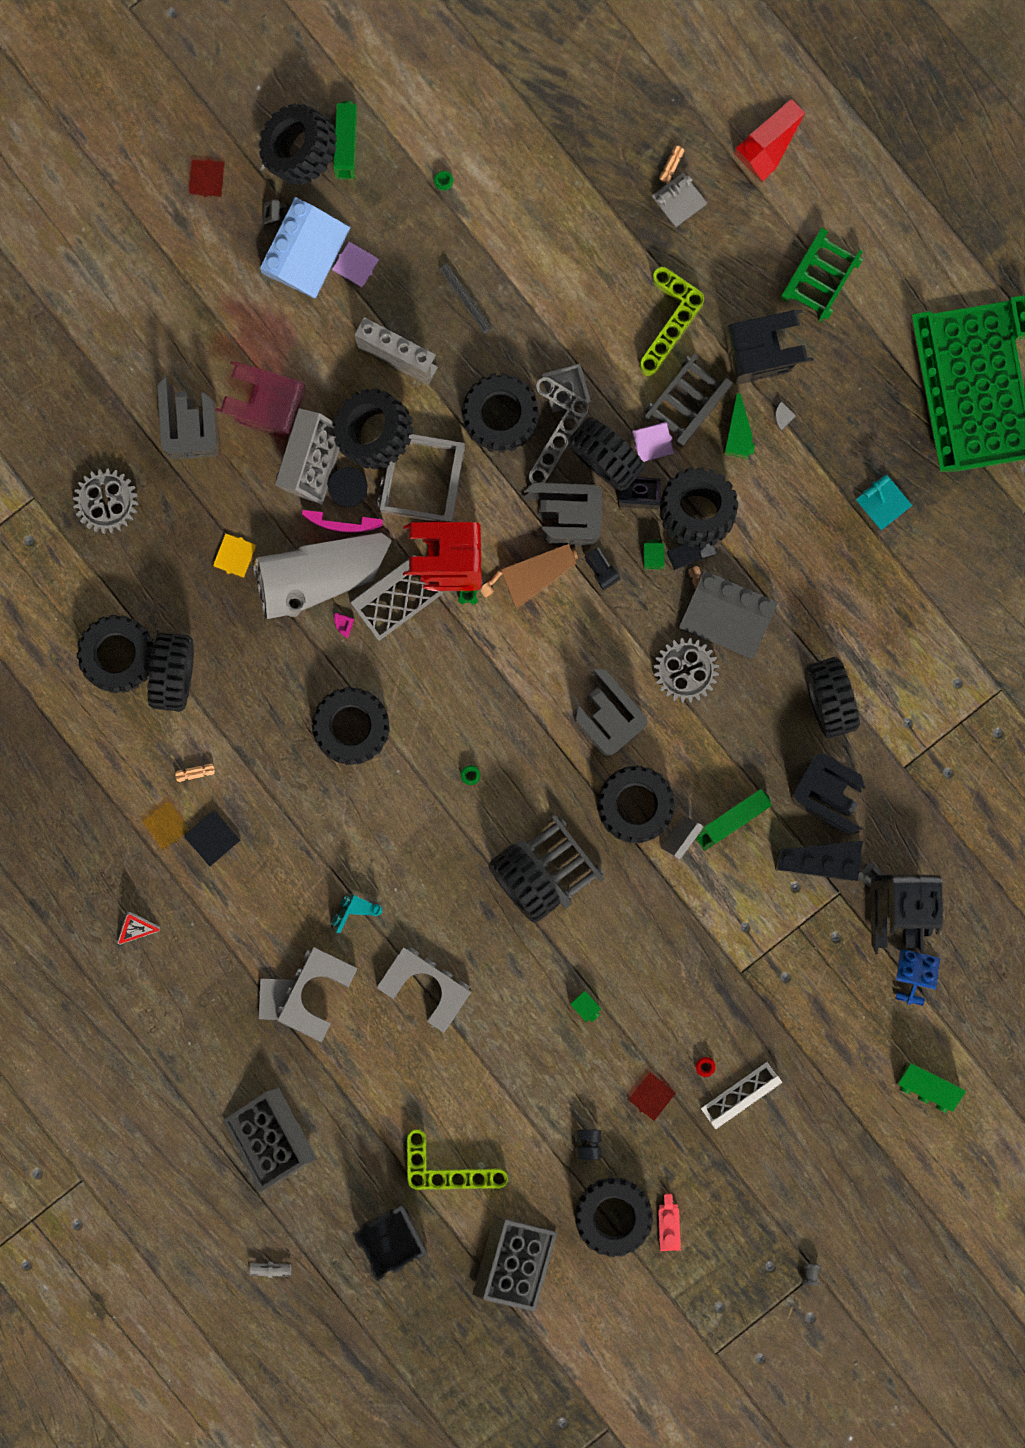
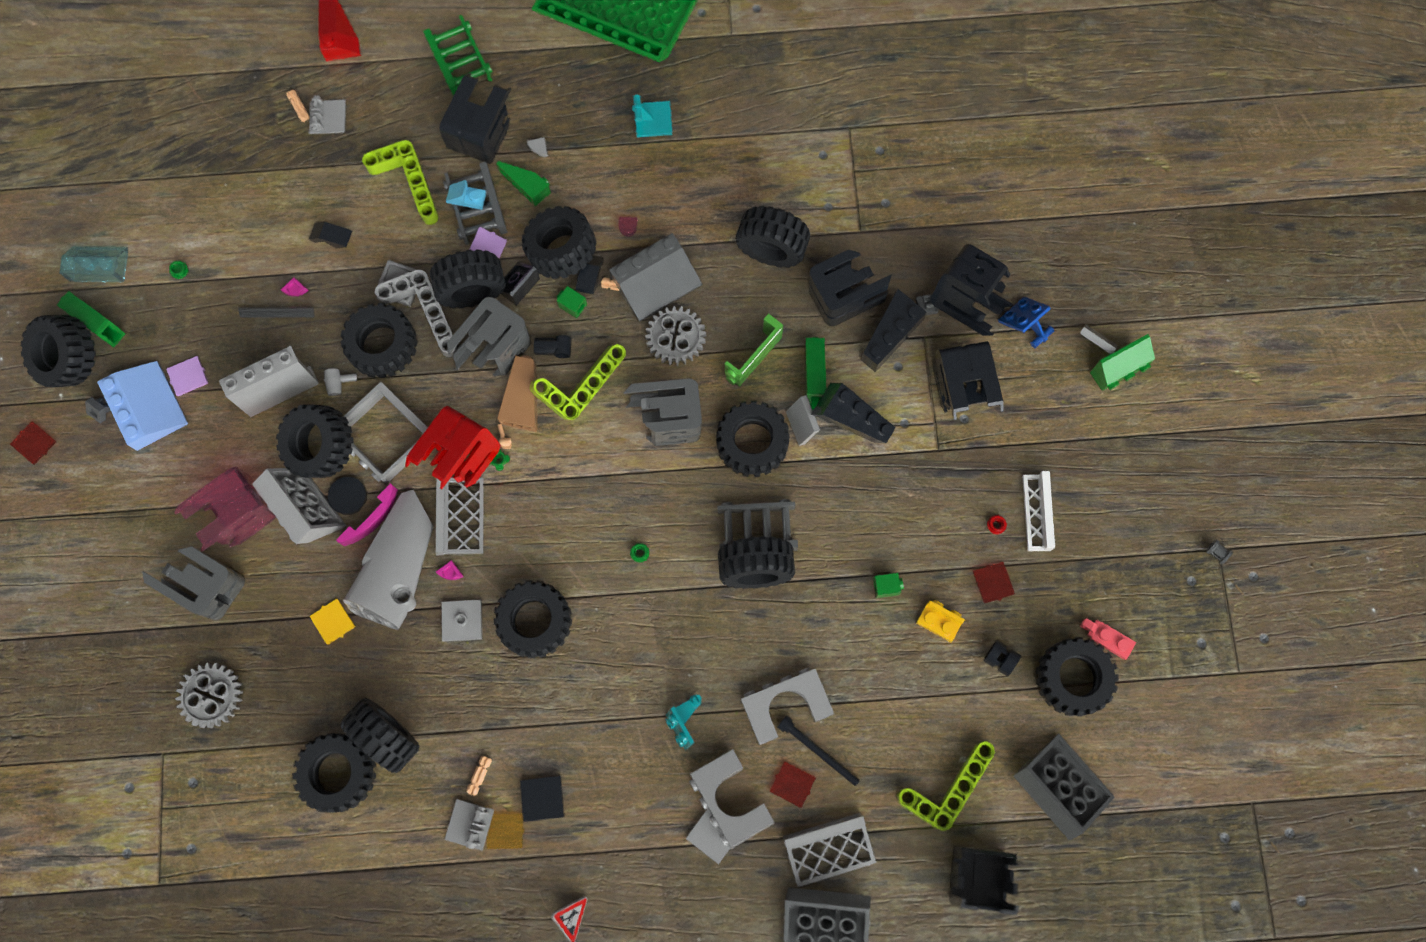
camera: 55 degrees left, 10 degrees down
(151, 793) = (469, 825): none -> light grey hinge
(310, 665) = (462, 620): none -> light grey plate
(345, 1091) = (826, 831): none -> light grey fence
(364, 1037) = (792, 784): none -> clear red piece
(398, 101) = (94, 264): none -> clear light blue slope
(409, 1001) = (788, 726): none -> black piece
(438, 398) = (333, 381): none -> light grey piece
(498, 296) = (294, 288): none -> dark pink tile
(568, 292) = (331, 234): none -> black slope
(583, 621) = (583, 386): none -> lime beam
(585, 1071) = (940, 620): none -> yellow bracket
(685, 390) = (466, 196): none -> medium azure slope
(712, 873) = (851, 413): none -> black wedge
(749, 754) = (774, 331): none -> bright green panel
(762, 553) = (628, 226): none -> clear pink tile
(818, 955) = (966, 365): none -> black piece
(938, 1050) = (1098, 339): none -> light grey tile

